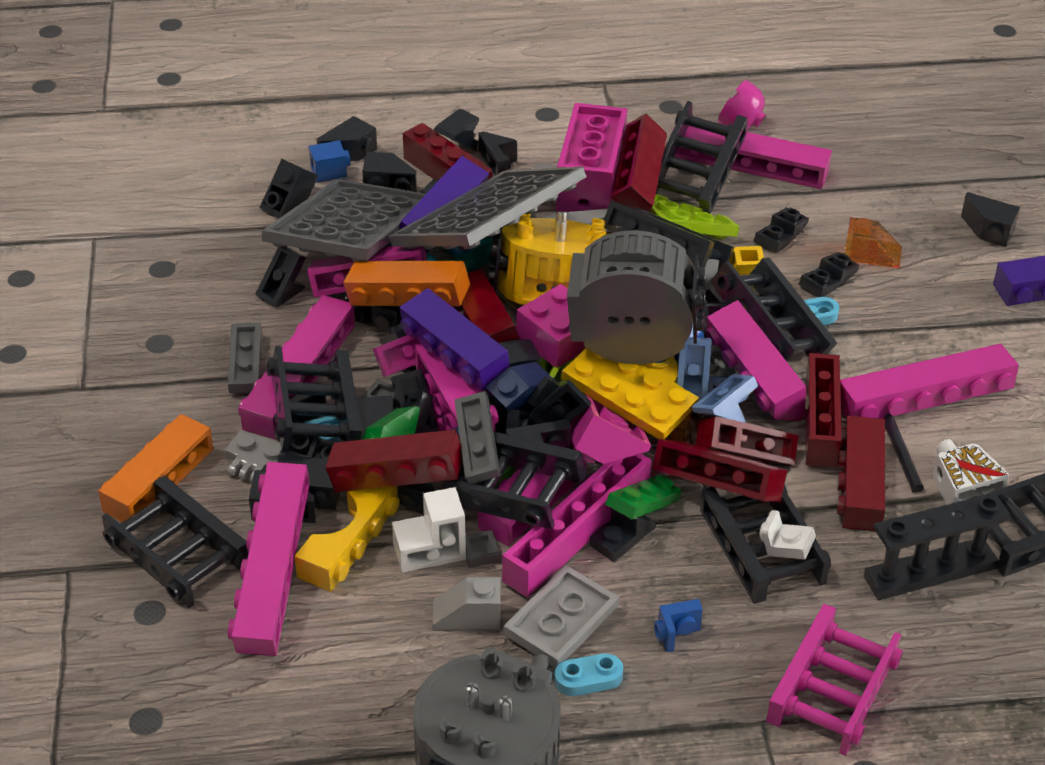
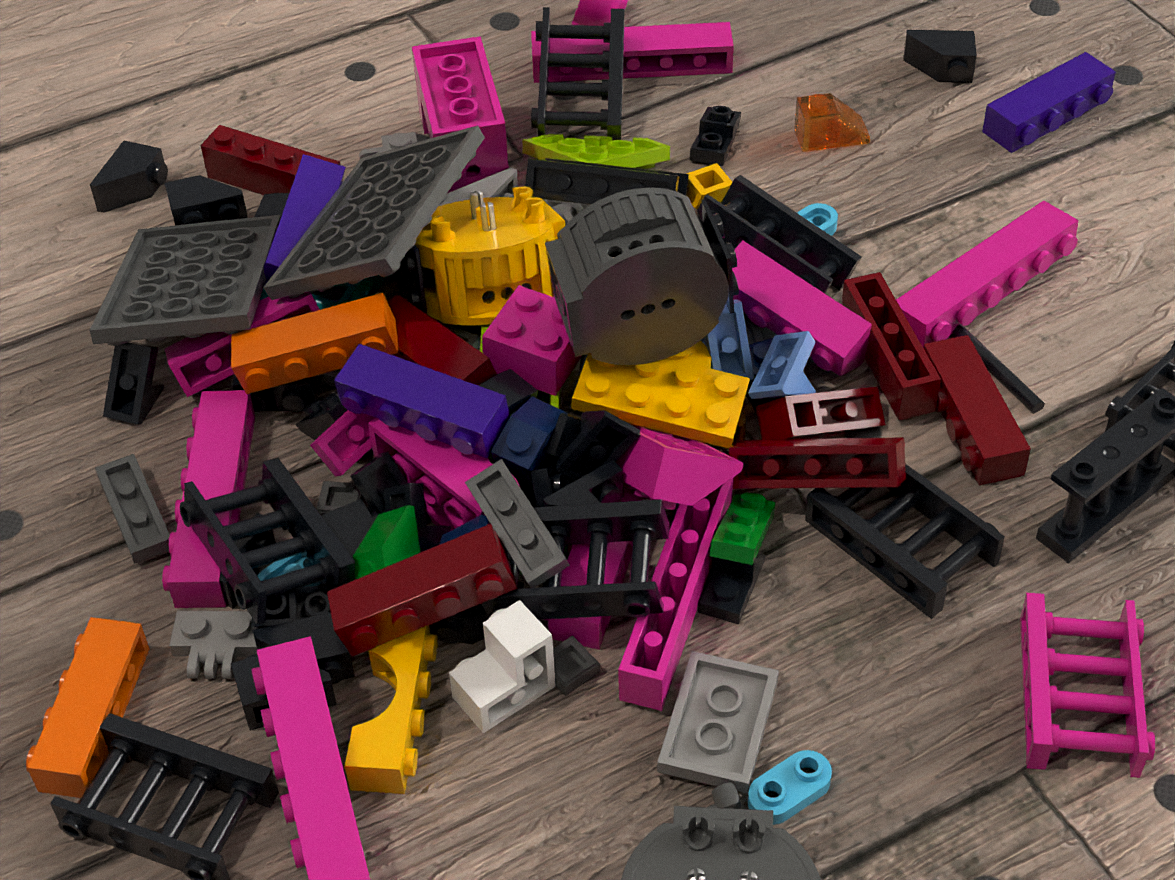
camera: 20 degrees left, 5 degrees up
(288, 188) = (81, 262): black slope -> none
(329, 161) = (116, 209): blue brick -> none
(460, 128) = (271, 119): black slope -> none
(469, 605) = (598, 749): light grey slope -> none
(497, 151) = (327, 136): black slope -> none
(639, 164) = (524, 102): dark red brick -> none
(676, 620) = (862, 677): blue bracket -> none
(784, 539) = (942, 525): white bracket -> none
(830, 275) = (799, 174): black slope -> none
(966, 472) = (1087, 372): torso -> none

